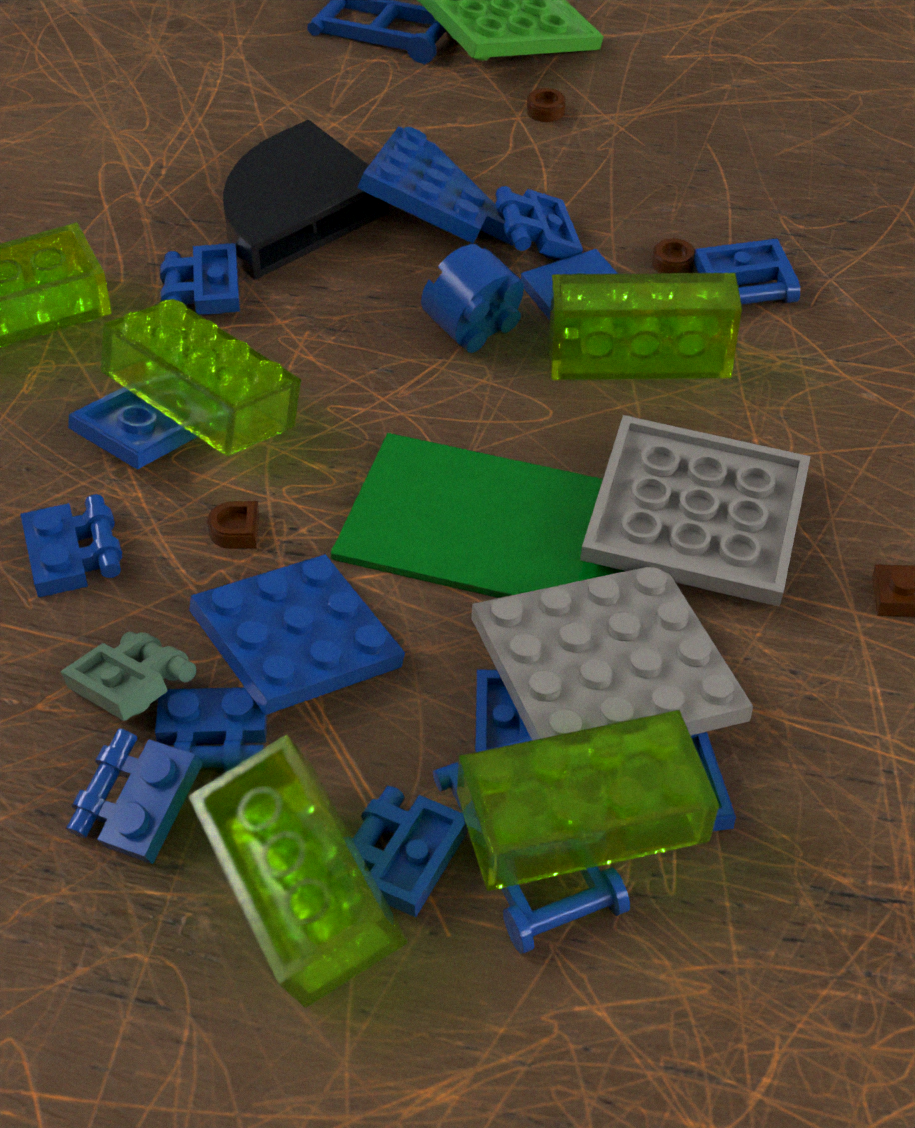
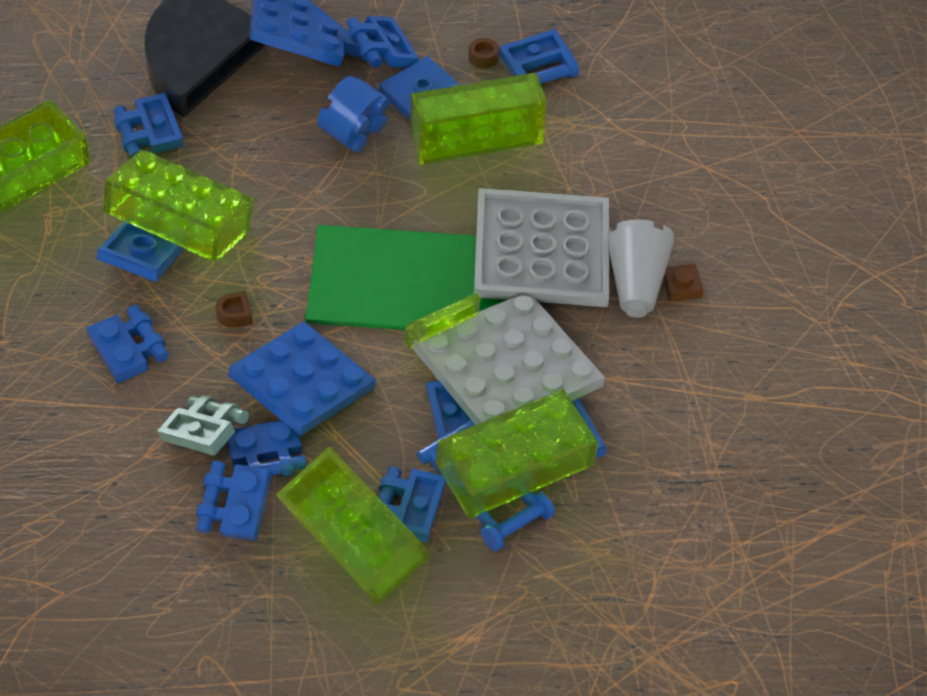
camera: 15 degrees left, 5 degrees up
(521, 578) = (442, 319): none -> clear neon green slope
(839, 549) = (639, 263): none -> light grey cone

